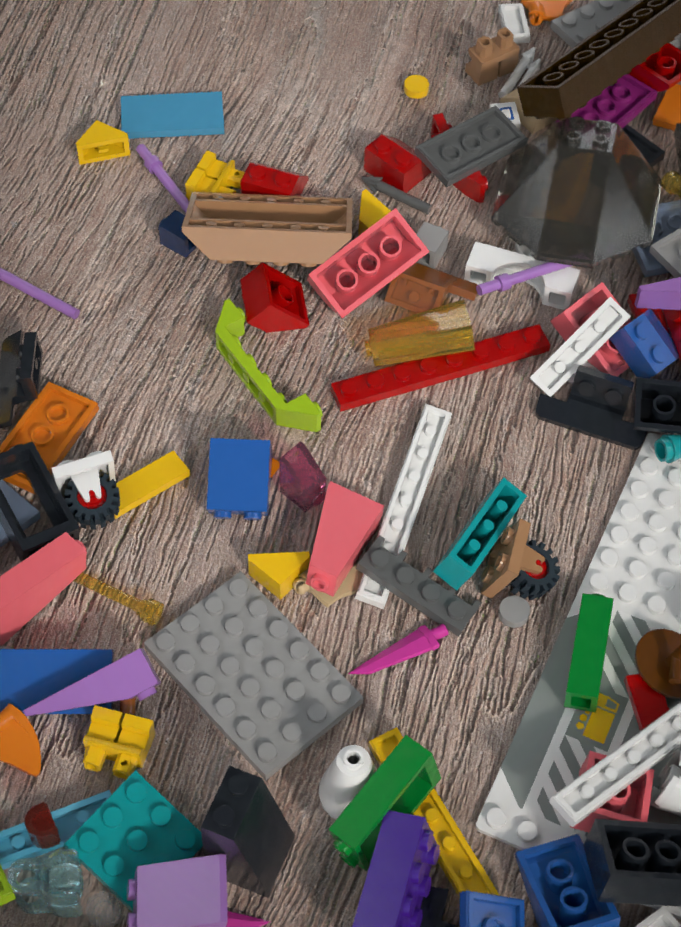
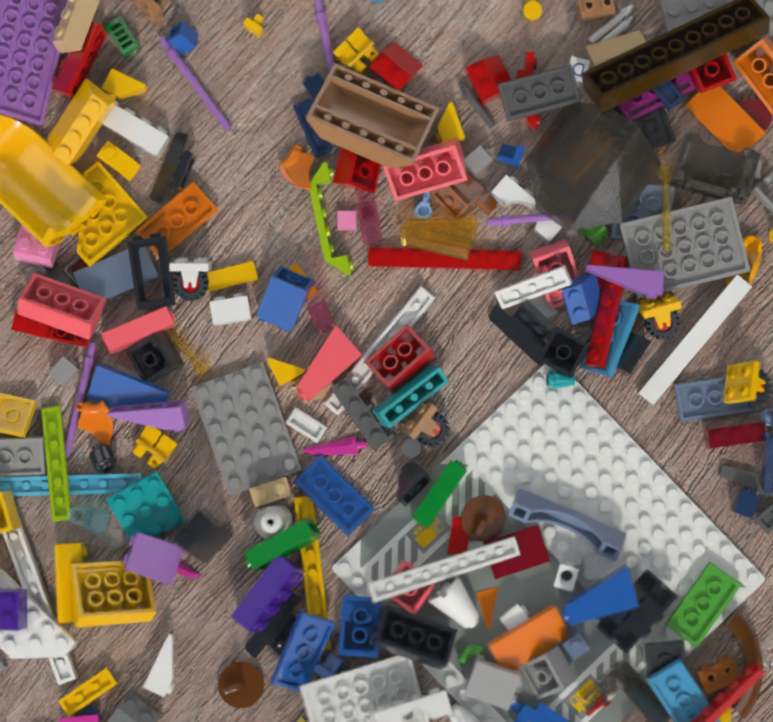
camera: 25 degrees right, 30 degrees up
(37, 786) = (103, 457): none -> black head
(41, 827) = (97, 485): clear red brick -> none
(68, 194) = (255, 25): none -> yellow tile
(72, 615) = (155, 357): none -> black slope
(165, 520) = (230, 310): none -> white brick
(190, 322) = (297, 167): none -> orange arm
(192, 280) = (319, 146): none -> dark blue tile
(285, 365) = (346, 220): none -> bright pink tile
(317, 349) = (369, 221): none -> clear pink slope
(323, 742) = (270, 492): none -> tan brick
(342, 635) = (306, 425): none -> white tile
(383, 313) = (423, 209): none -> light blue plate
(430, 716) = (334, 495): none -> blue tile
(442, 496) = (400, 359): none -> red slope
(468, 232) = (510, 155): none -> blue panel
(541, 645) = (411, 482): none -> black slope
(614, 699) = (441, 525): none -> clear tile
(619, 271) = (597, 235): none -> bright green bracket
(624, 101) = (668, 95): none -> dark blue tile

